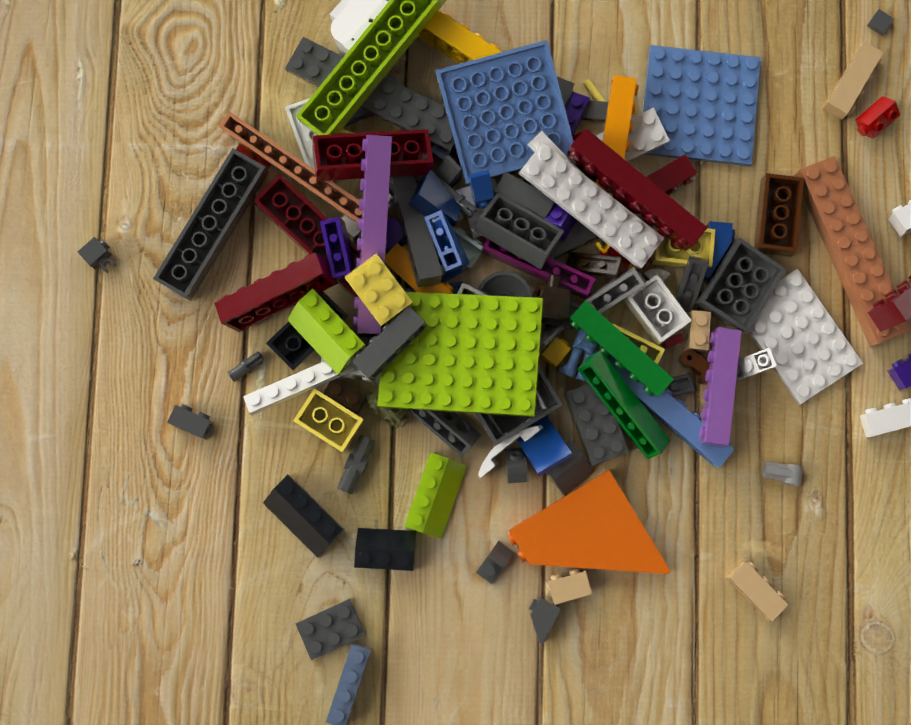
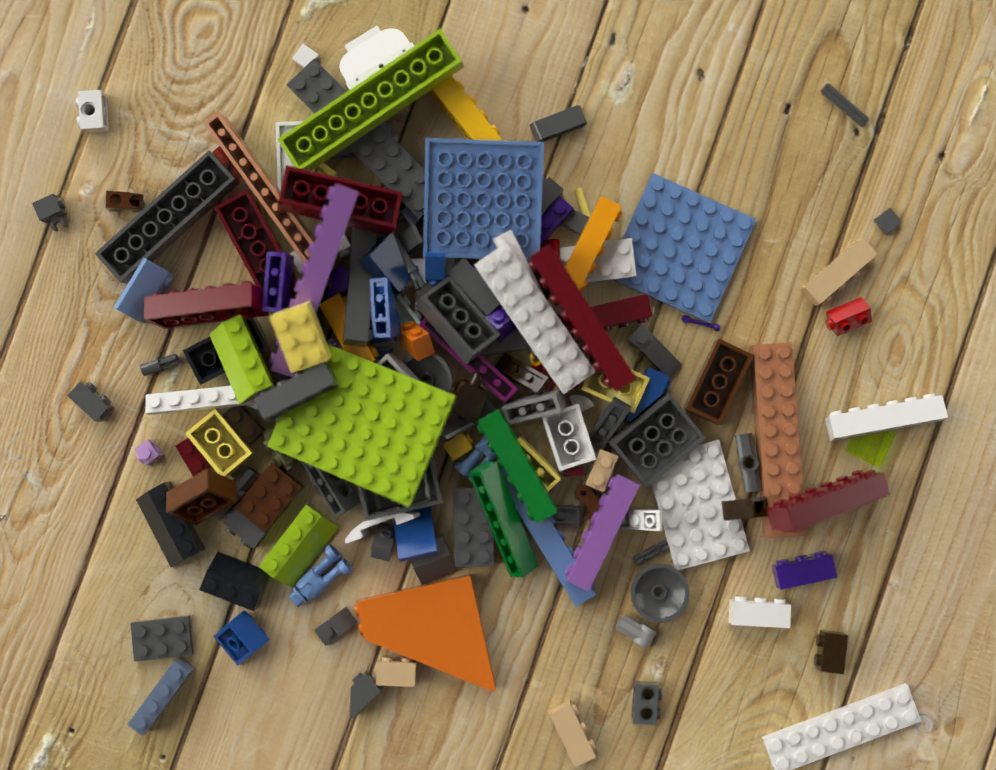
camera: 20 degrees right, 5 degrees up
(115, 158) = (99, 120): none -> white brick
(164, 224) = (124, 201): none -> reddish brown leg
(210, 289) = (147, 279): none -> light blue slope
(262, 453) = (149, 452): none -> lavender brick
(291, 39) = (304, 56): none -> white tile
(313, 450) = (192, 457): none -> dark red plate
(328, 475) = (201, 497): none -> reddish brown brick
(378, 494) = (244, 528): none -> dark grey brick
(392, 457) = (269, 497): none -> reddish brown brick
(408, 602) = (241, 637): none -> blue slope
(459, 528) = (313, 584): none -> medium blue piece
(485, 264) = (416, 340): none -> orange brick
(549, 26) = (558, 124): none -> dark grey beam
(707, 205) = (654, 351): none -> dark grey slope
(727, 168) = (685, 319): none -> dark purple hinge
(771, 394) = (650, 552): none -> dark grey axle
(806, 426) = (672, 598): none -> dark grey dish
(811, 540) = (640, 703): none -> dark grey brick
(838, 292) = (750, 475): none -> dark grey piece
(846, 322) = (744, 508): none -> dark brown slope

